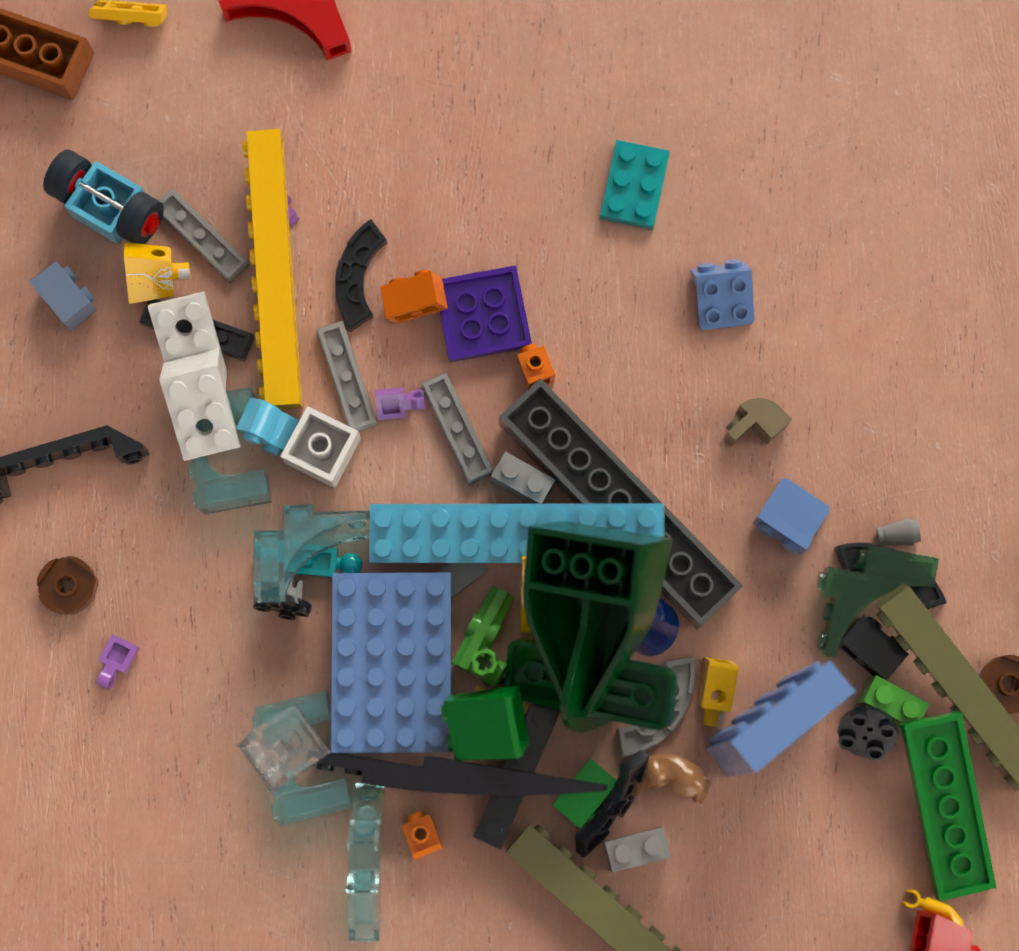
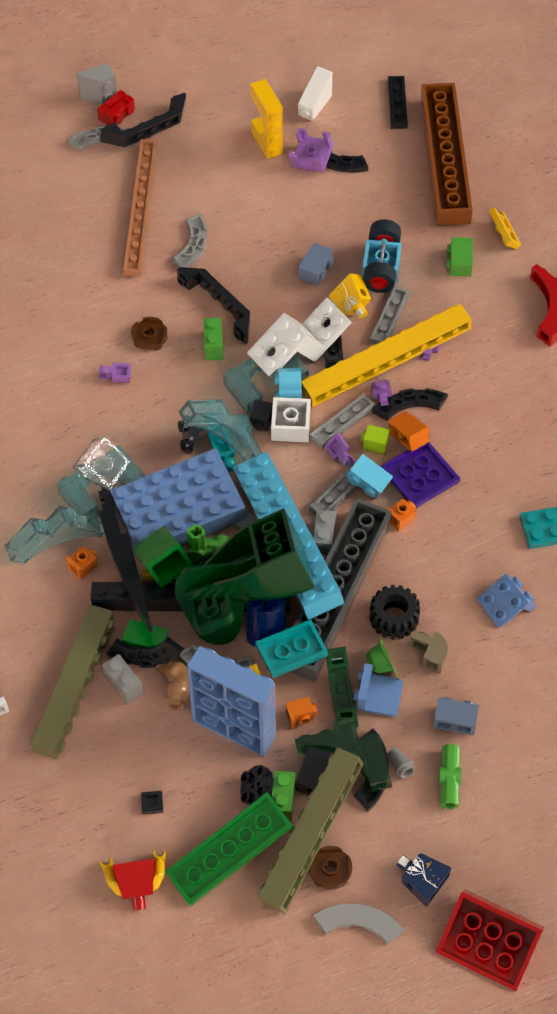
camera: 70 degrees right, 20 degrees down
(125, 497) = (213, 339): none -> bright green brick
(148, 93) = (460, 256): none -> bright green brick
(291, 484) = (261, 415): none -> black brick
(325, 302) = (381, 389): none -> medium lavender plate
(402, 347) = (375, 439): none -> lime brick
(463, 383) = (369, 476): none -> medium azure brick
(692, 421) = (397, 598): none -> black tyre
(704, 604) = (291, 648): none -> teal plate
(749, 495) = (379, 659): none -> bright green piece
(769, 563) = (340, 684): none -> dark green slope
(779, 629) = (300, 711): none -> orange brick
(828, 878) = (152, 802): none -> black tile
(867, 434) = (456, 716): none -> sand blue brick
(942, 481) = (449, 776): none -> bright green piece

